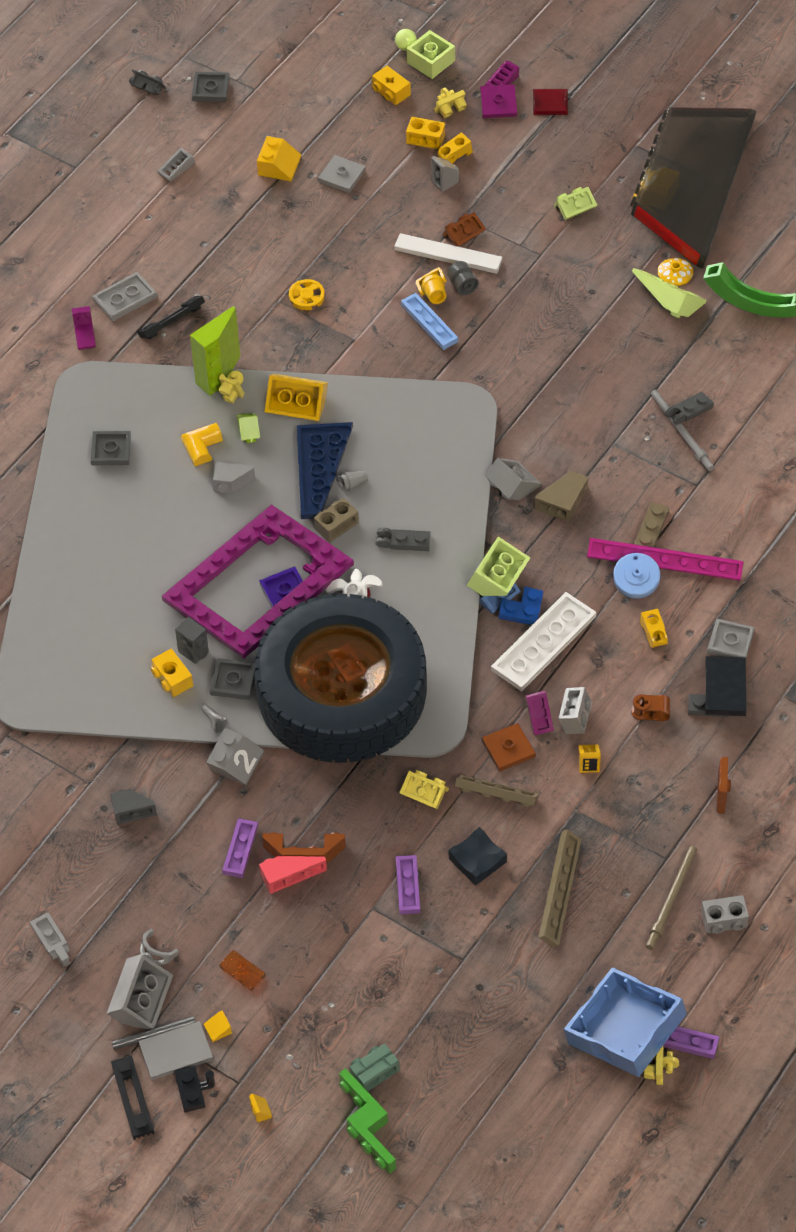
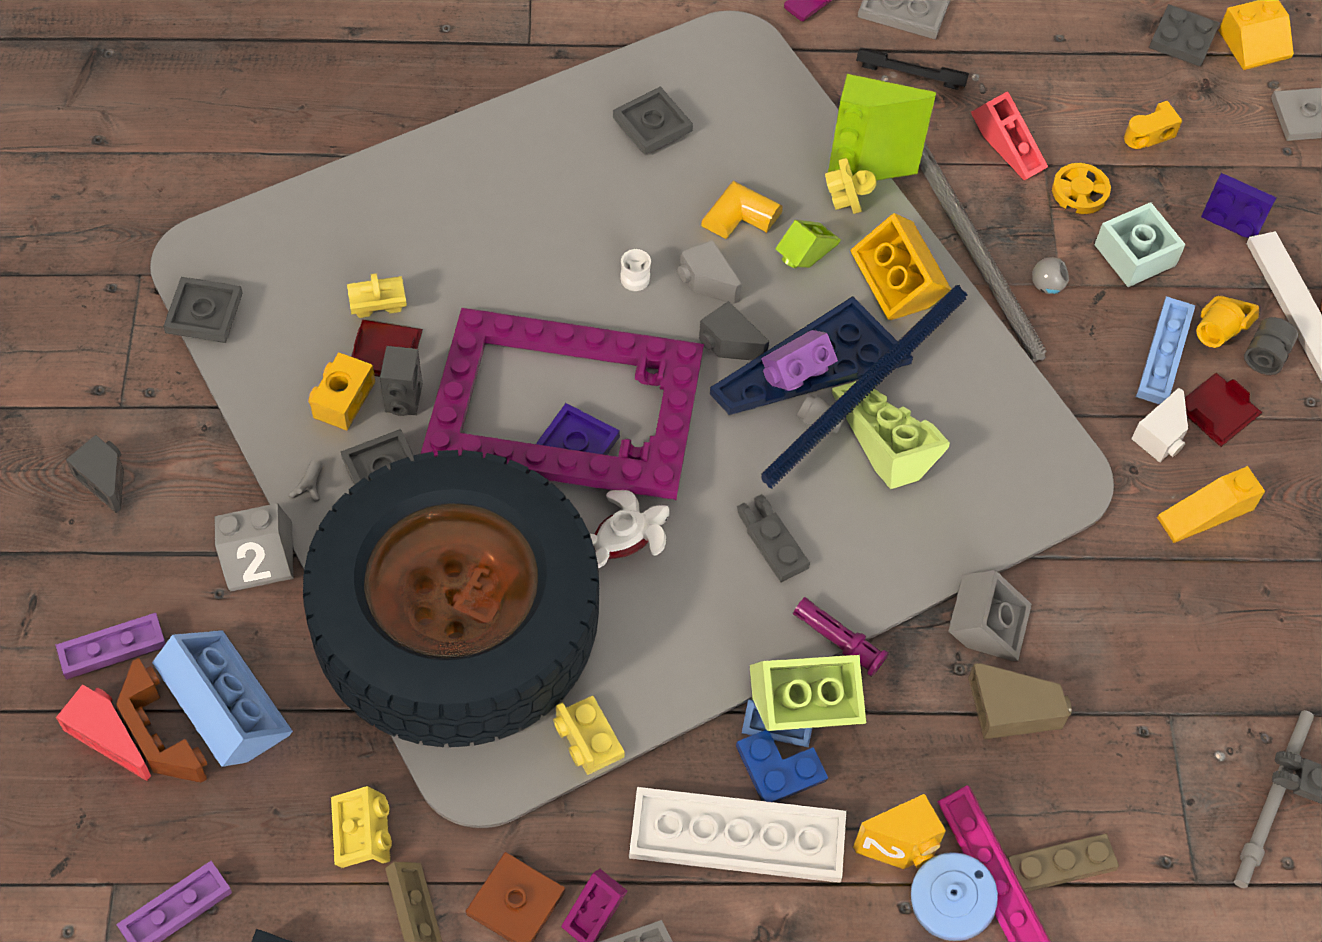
camera: 50 degrees right, 5 degrees up
(65, 711) = (203, 309): none -> dark grey plate
(124, 627) = (376, 296): none -> light yellow hips
(155, 642) = (375, 336): none -> dark red piece
(202, 507) = (635, 270): none -> white wheel
(250, 190) = (1184, 35): none -> dark grey plate
(251, 302) = (1009, 135): none -> coral slope
(277, 488) = (731, 334): none -> dark grey slope
(297, 240) = (1153, 128): none -> yellow leg
(308, 813) = (221, 696): none -> light blue slope
(320, 363) = (981, 257): none -> light grey axle
(321, 465) = (799, 360): none -> medium lavender brick
(336, 520) = (733, 441): dark tan brick -> none
(349, 339) = (1050, 275): none -> light grey piece
(355, 449) = (863, 387): none -> dark blue axle
(364, 291) = (1139, 244): none -> light aqua brick
(377, 237) = (1238, 206): none -> dark purple plate
(393, 458) = (892, 439): none -> yellowish green wedge
(449, 670) = (589, 735): none -> light yellow bracket
(471, 348) = (1164, 428): none -> white slope
(475, 322) = (1220, 408): none -> dark red piece
(485, 540) = (851, 643): none -> magenta pin
(526, 357) = (1213, 505): none -> yellow slope
(597, 574) = (902, 834): none -> yellow slope

